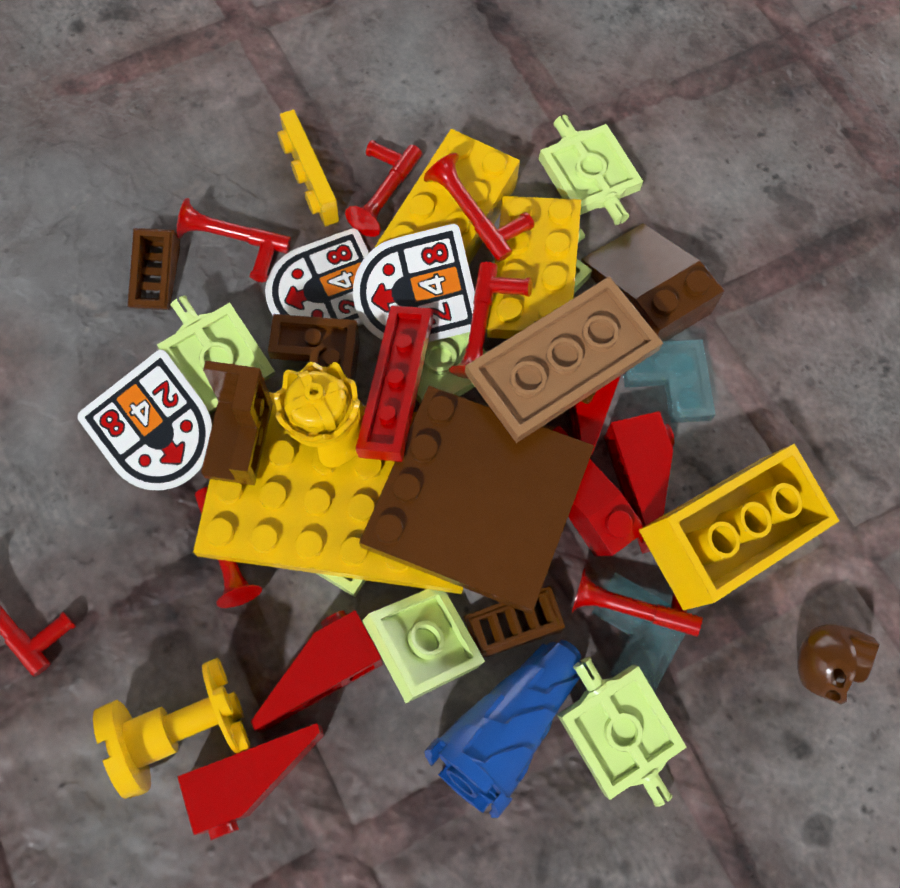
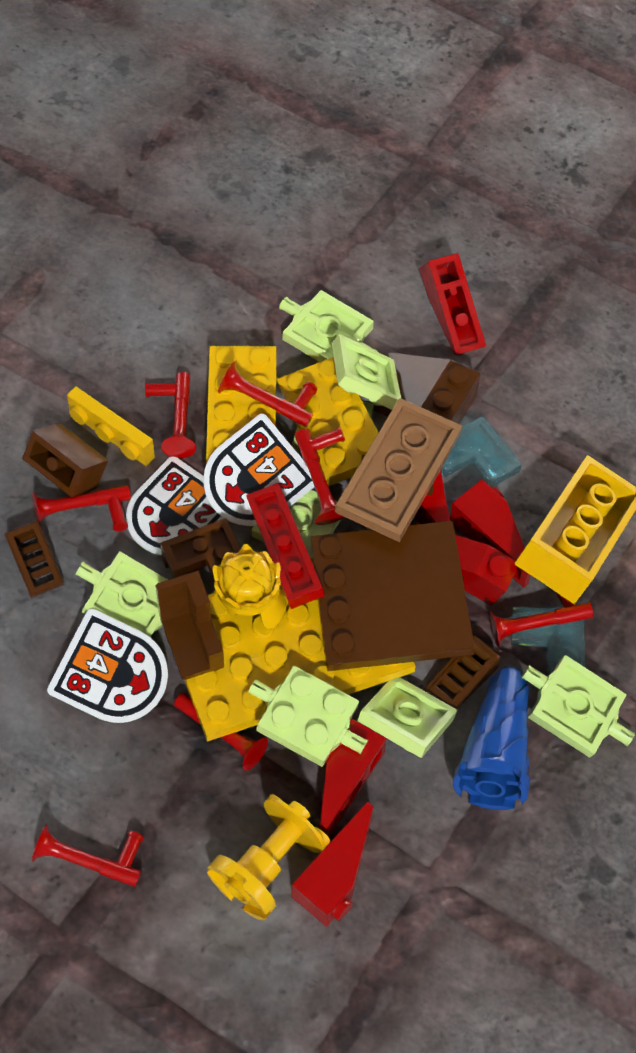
camera: 25 degrees left, 10 degrees down
(239, 180) = (65, 459): none -> reddish brown brick
(306, 590) = (308, 716): none -> yellowish green plate
(597, 231) = (365, 372): none -> yellowish green plate
(740, 200) = (453, 303): none -> red slope

